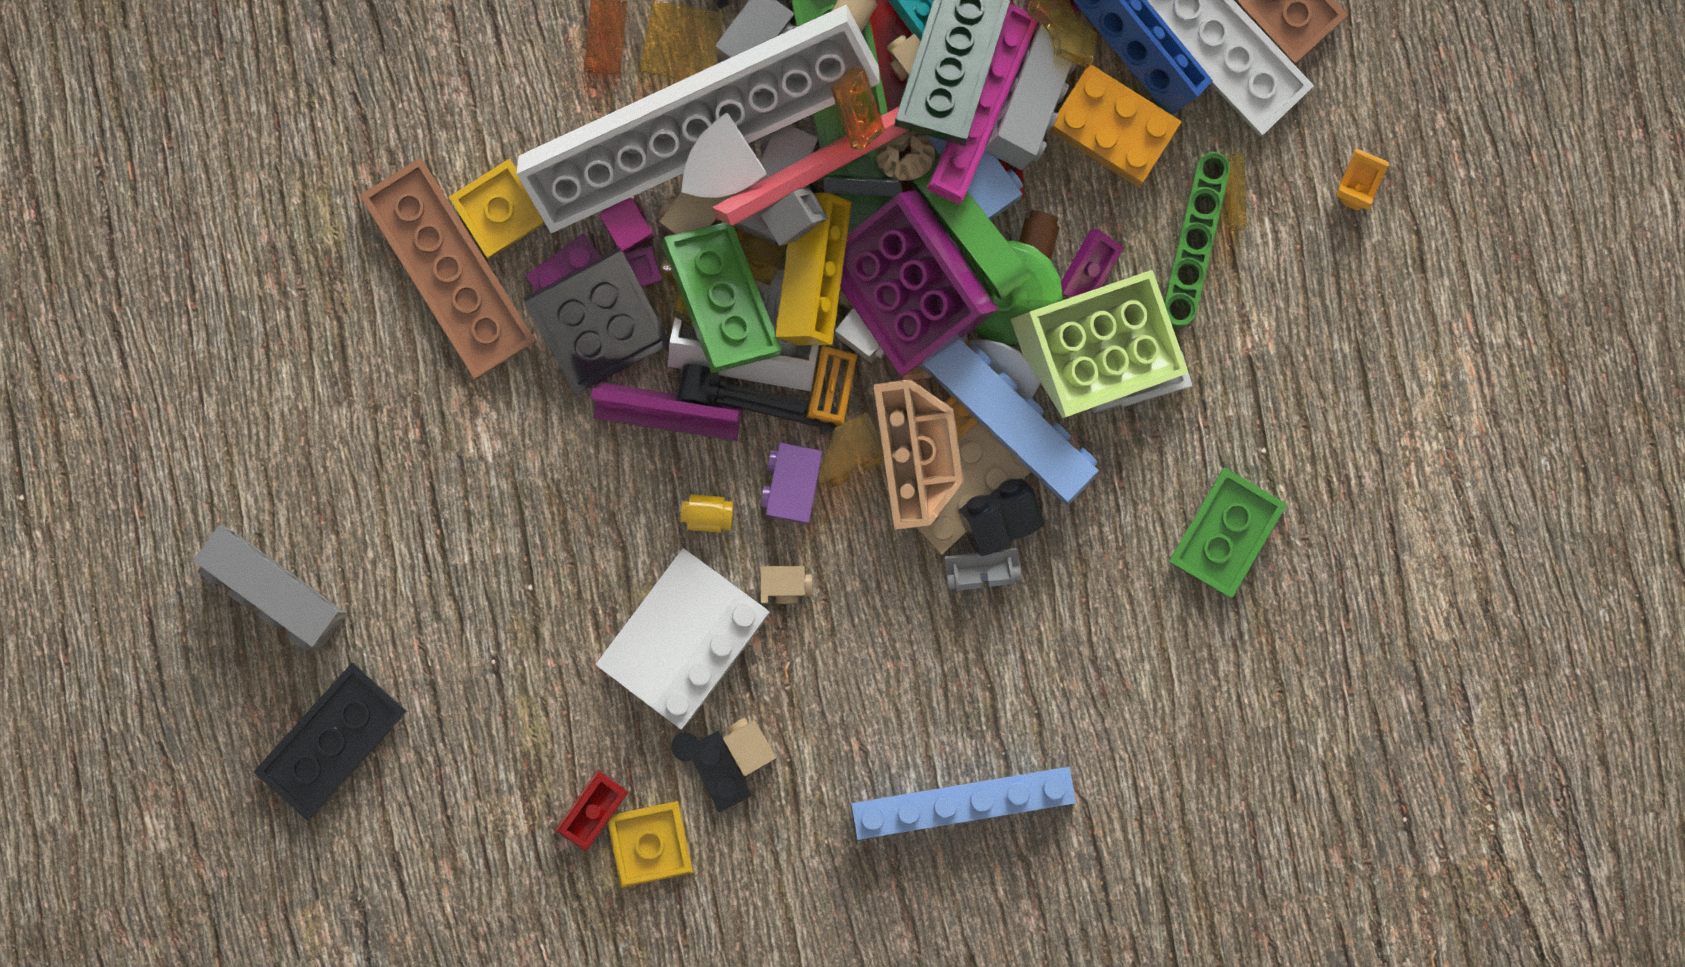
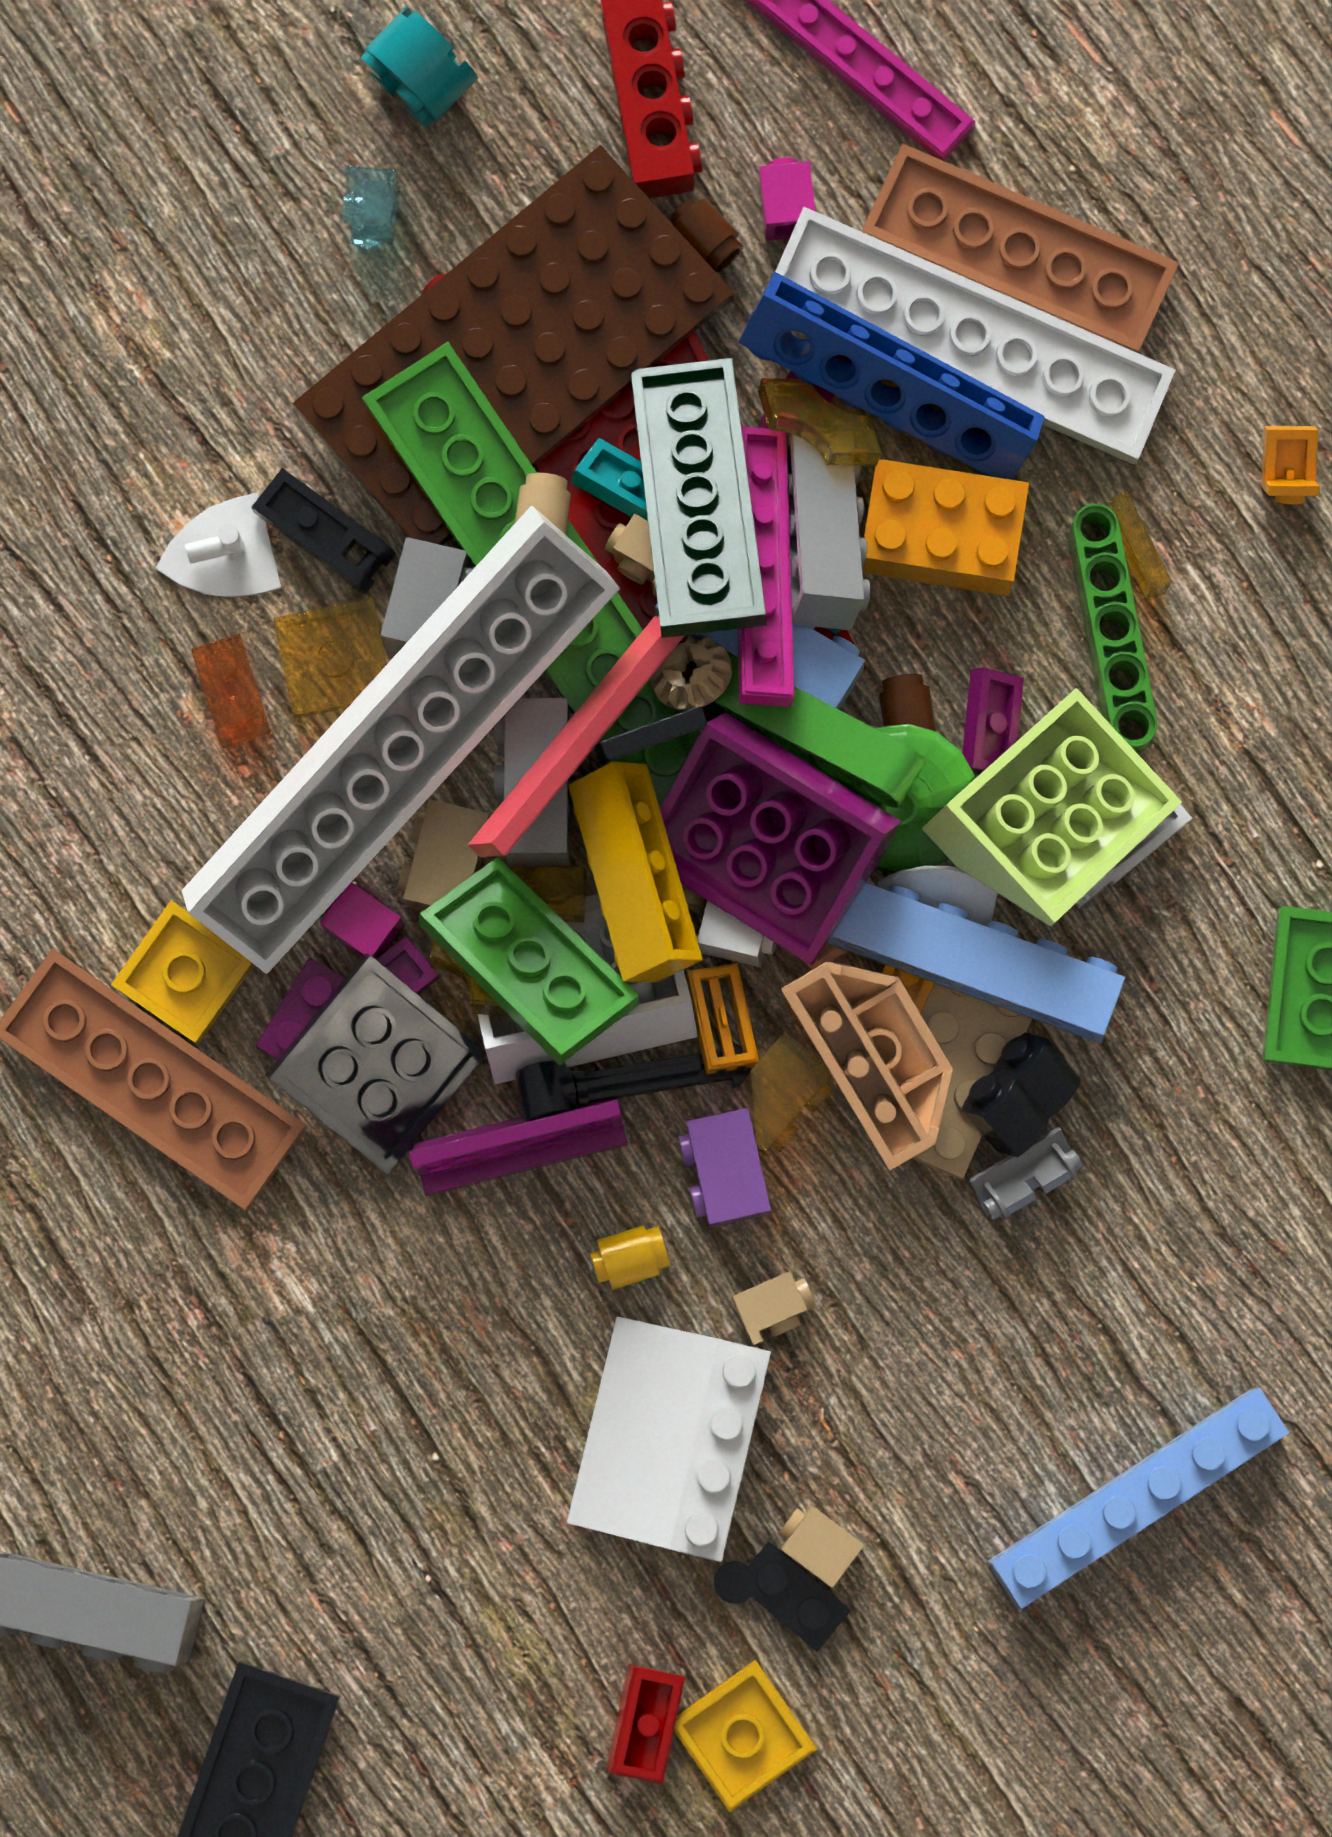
camera: 20 degrees left, 5 degrees down
(721, 162) = (454, 781): white shield -> none
(793, 216) = (580, 811): light grey brick -> none
(857, 108) = (605, 633): clear orange plate -> none

